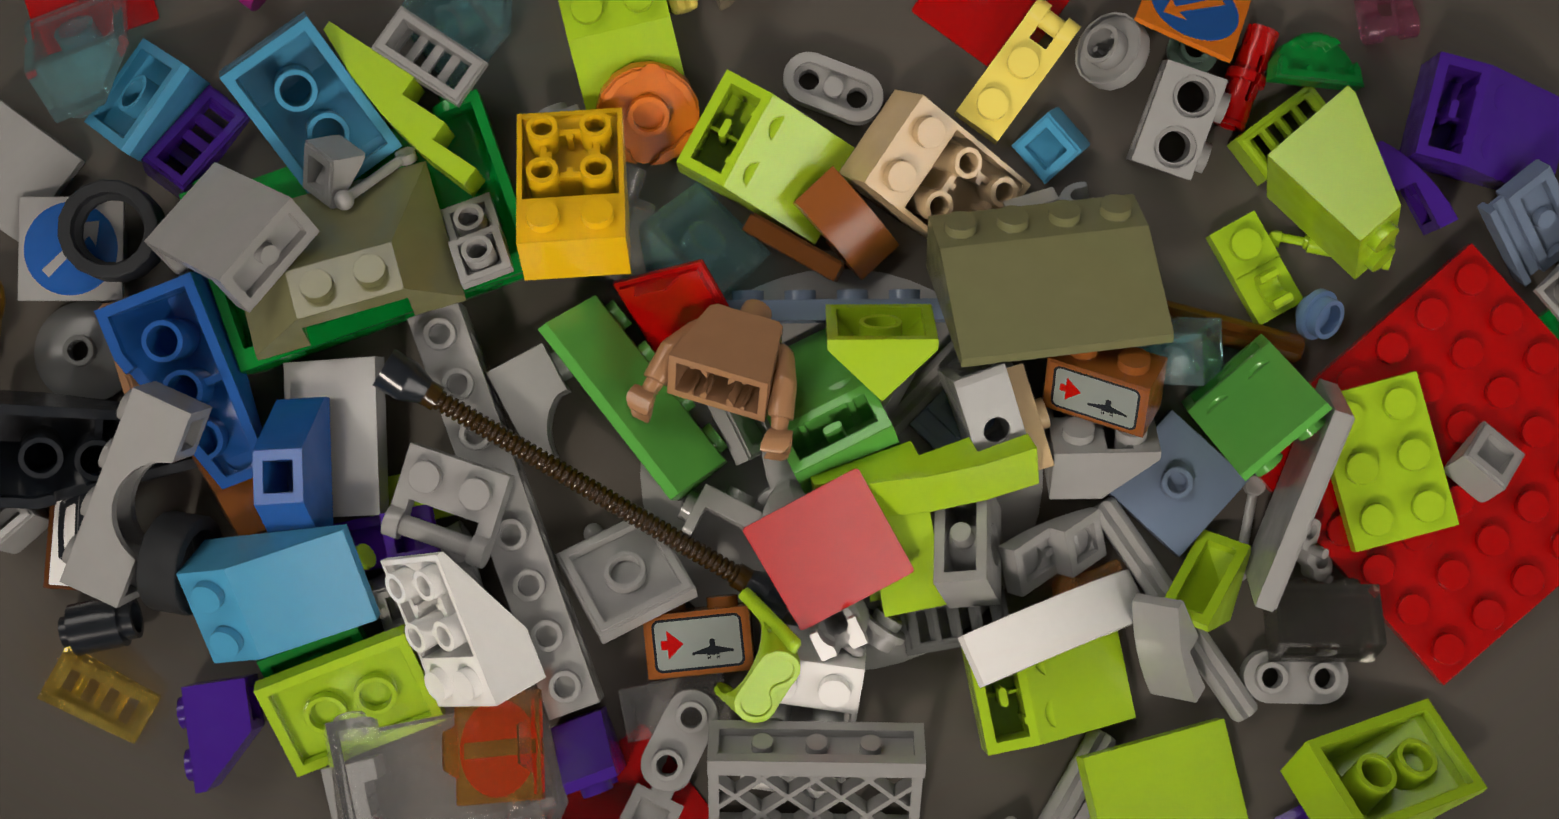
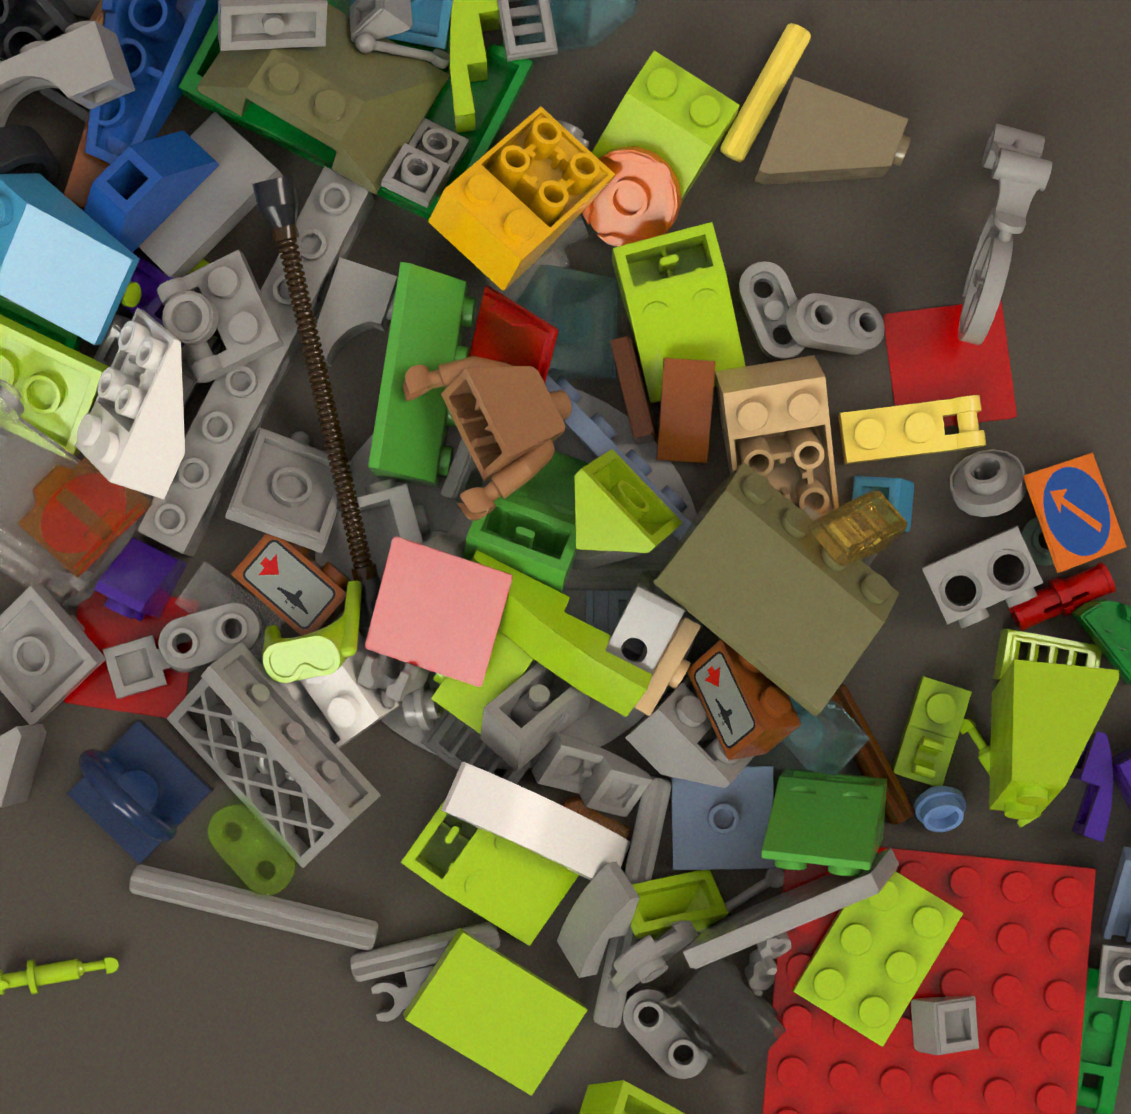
camera: 55 degrees right, 0 degrees up
(428, 527) = (190, 317): none -> light grey tile
(891, 48) = (839, 326): none -> light grey plate
(1059, 177) = (859, 528): none -> clear yellow slope
(1231, 636) = (648, 957): none -> light grey plate

